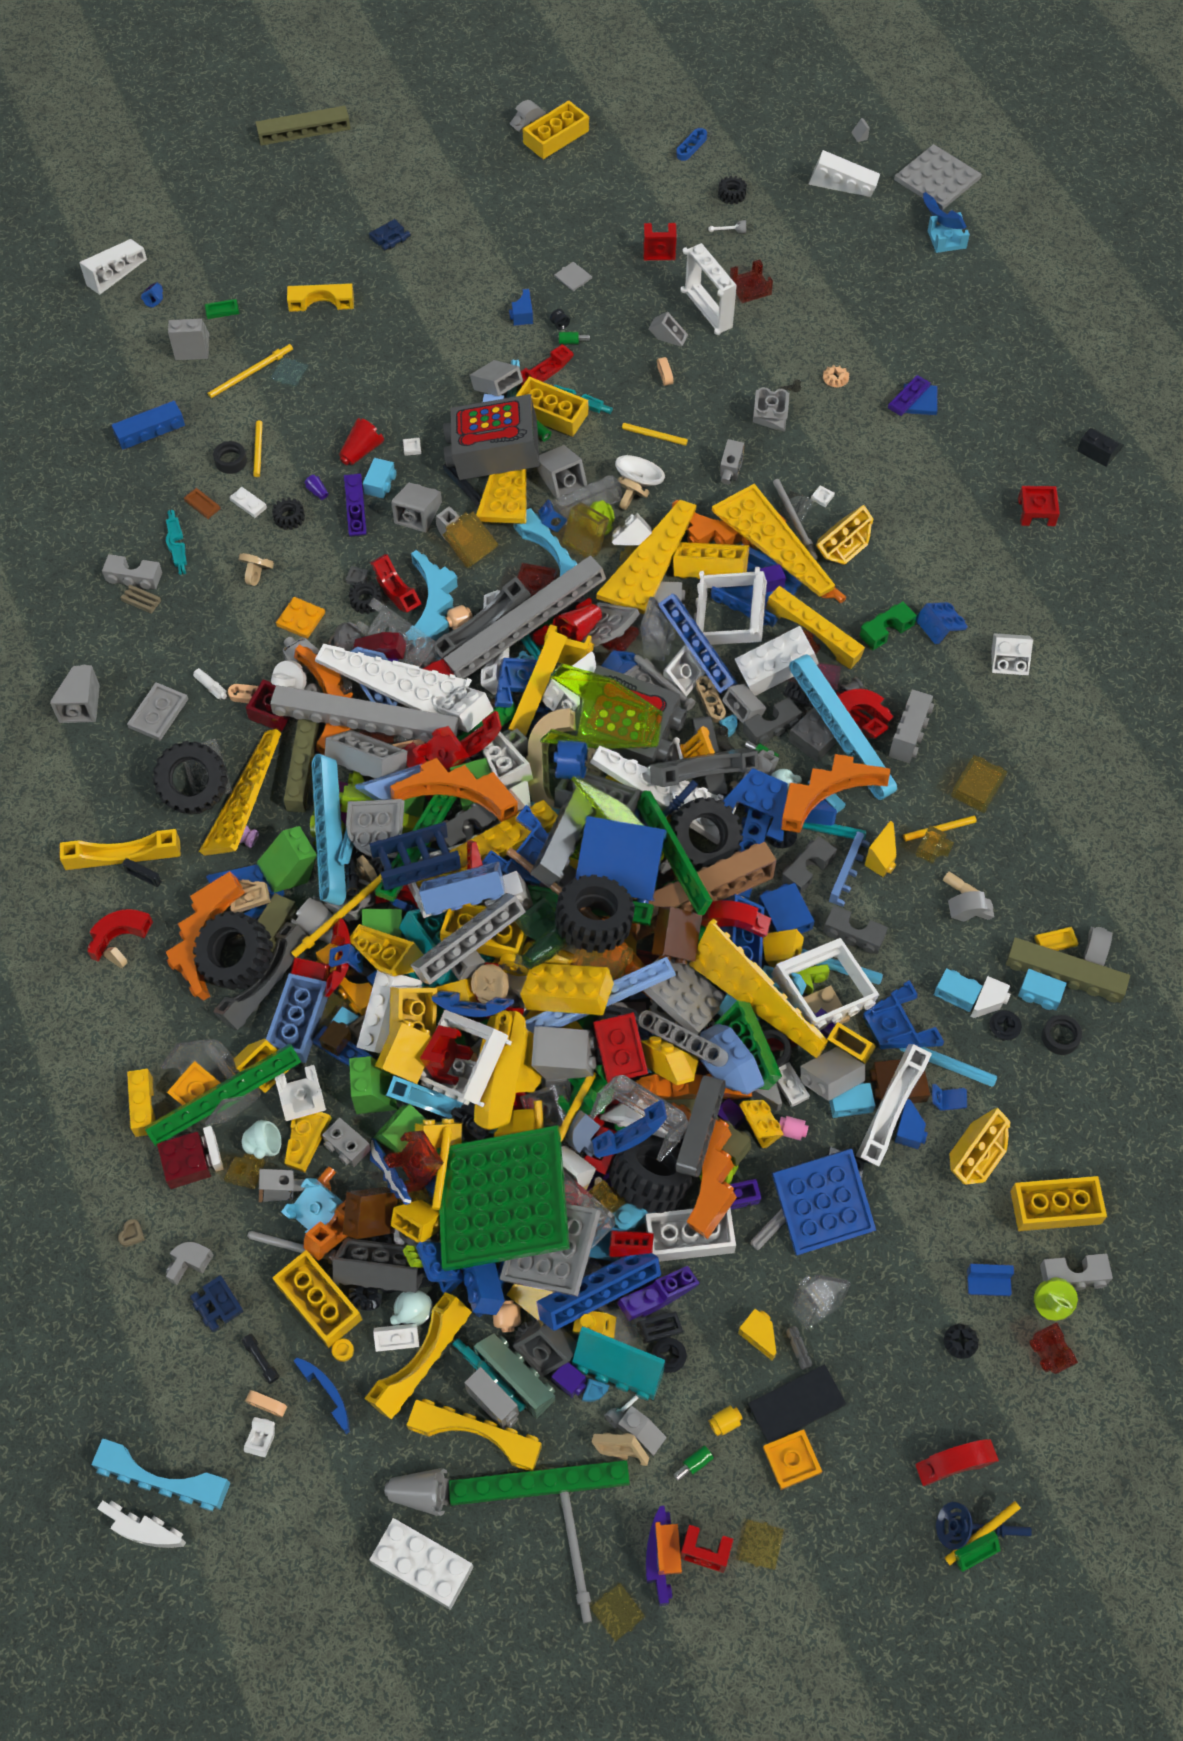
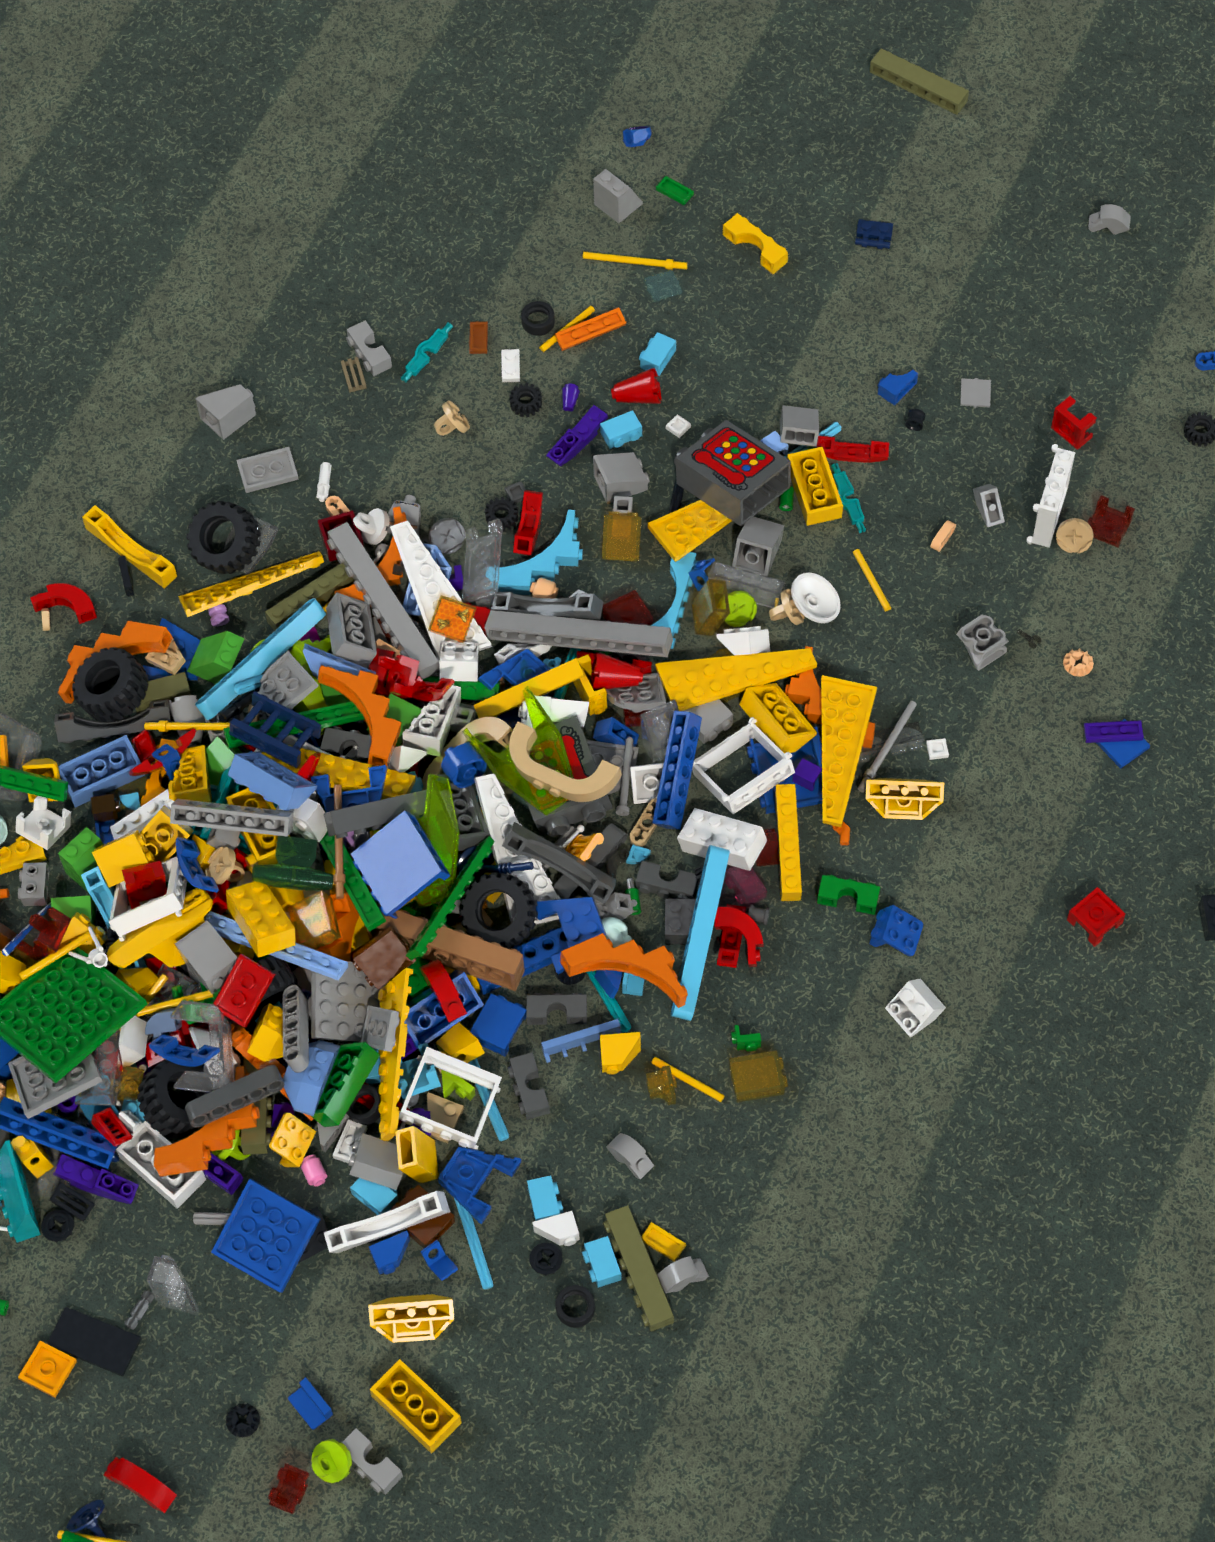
camera: 50 degrees right, 0 degrees up
(111, 265) = (634, 85): white wedge -> none
(148, 425) = (509, 241): blue brick -> none
(276, 435) = (590, 329): none -> orange plate
(300, 617) = (441, 488): light orange plate -> none
(342, 412) = (658, 353): none -> medium azure brick
(389, 643) = (459, 561): dark red slope -> none
(428, 684) = (452, 619): none -> clear yellow tile
(477, 1135) = (96, 956): none -> white plant
(555, 129) = (1116, 252): yellow brick -> none
(572, 337) = (906, 443): green piece -> none
(589, 933) = (335, 860): black tyre -> none
(637, 1225) = (129, 1120): none -> white slope
(638, 716) = (557, 784): none -> tan arch
(725, 1420) = (38, 1301): yellow brick -> none
(731, 461) = (894, 655): light grey torso -> none
(733, 982) = (380, 1028): none -> light grey plate
(740, 227) = (1166, 467): hinge -> none
(743, 702) = (662, 847): light grey brick -> none
(745, 304) = (1074, 535): none -> tan tile
(760, 1333) = (126, 1273): yellow slope -> none
(910, 726) = (763, 984): light grey wedge -> none
(941, 773) = (749, 1041): none -> green bracket
(957, 883) = (646, 1132): tan piece -> none

